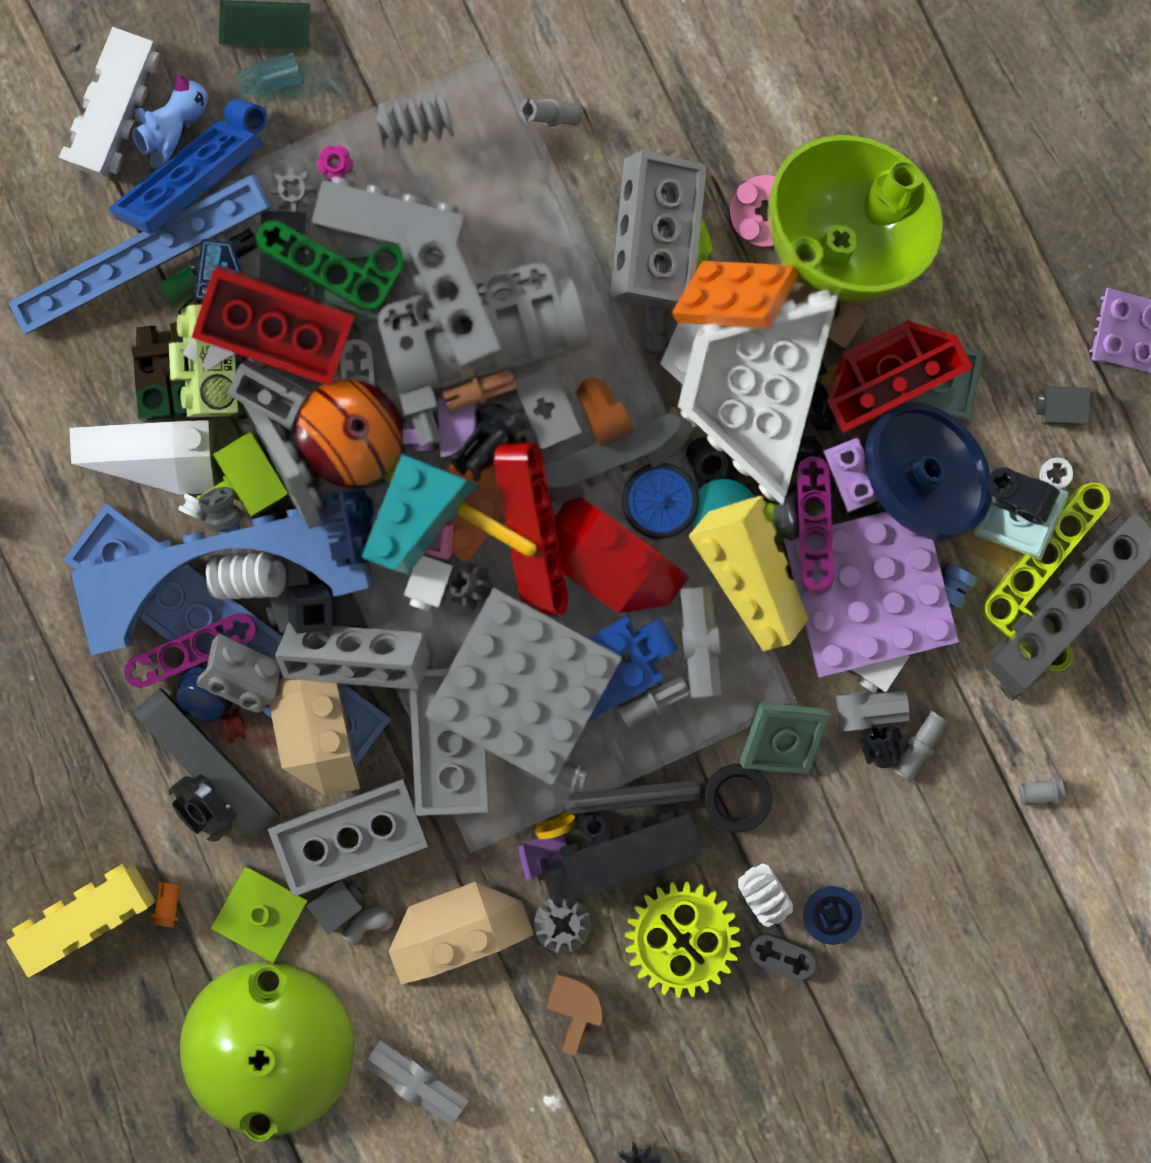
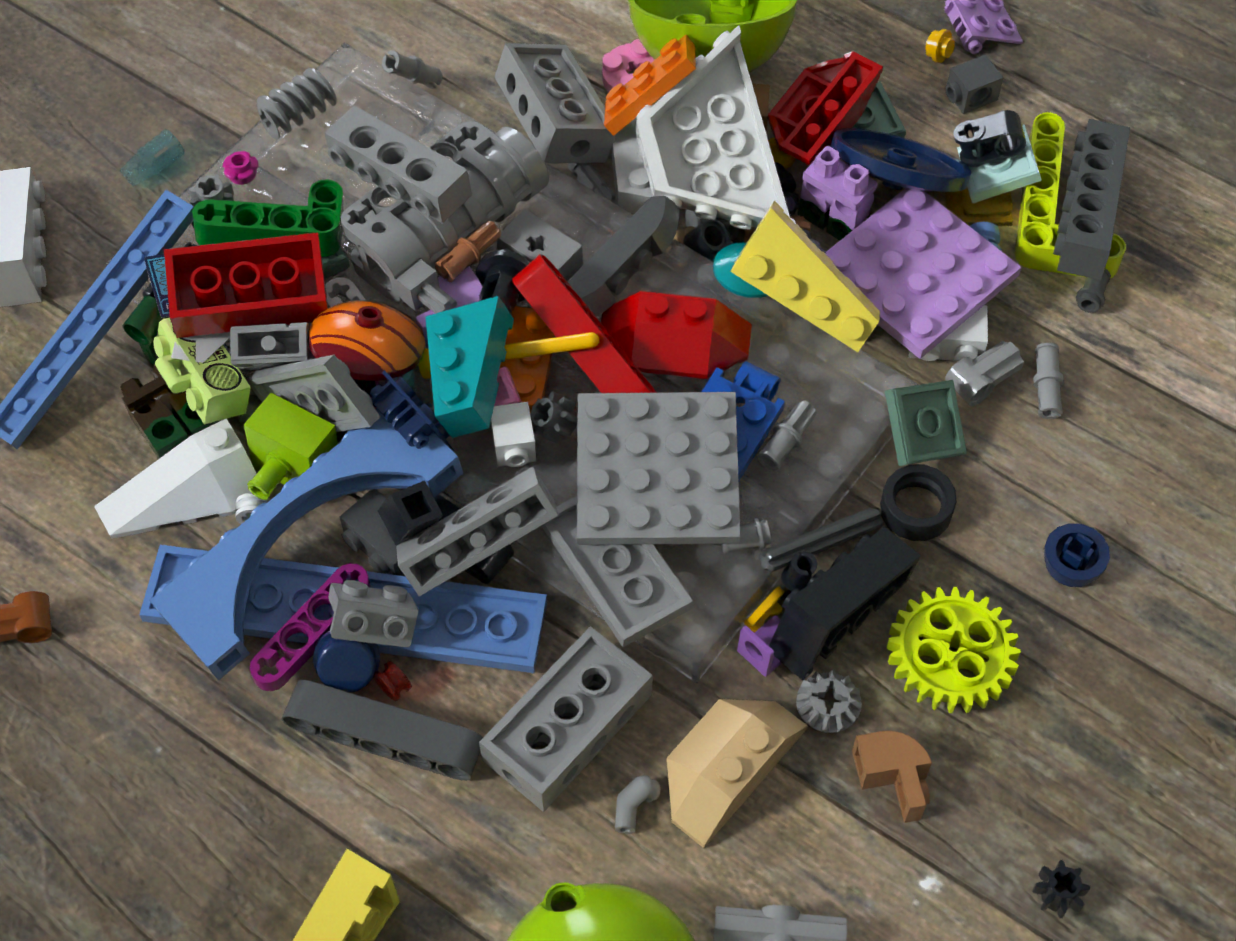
camera: 20 degrees left, 30 degrees down
(162, 128) = (69, 228): light blue animal -> none
(166, 905) = (415, 902): orange pin -> none
(193, 169) = (141, 191): blue hinge -> none
(201, 807) = (412, 752): black plate -> none
(220, 508) = (274, 471): dark grey wheel -> none
(245, 576) = (330, 525): white piece -> none
(259, 914) = (516, 852): lime plate -> none
(264, 23) = (127, 127): clear green piece -> none
(314, 735) = (480, 635): tan wedge -> none
(336, 904) = (591, 796): dark grey brick -> none
(375, 214) = (290, 176): light grey brick -> none
(605, 416) = (593, 223): dark orange piece -> none
(660, 500) = (687, 272): blue wheel -> none
(700, 641) = (798, 364): light grey piece -> none
(765, 895) = (1004, 563): white gear -> none
(778, 964) = (1057, 621): dark grey beam -> none
(815, 525) = (842, 228): magenta beam -> none
(883, 746) = (1016, 392): black gear -> none
(1042, 792) = (1186, 360): light grey pin -> none
(1064, 342) = (940, 45): none -> yellow plate

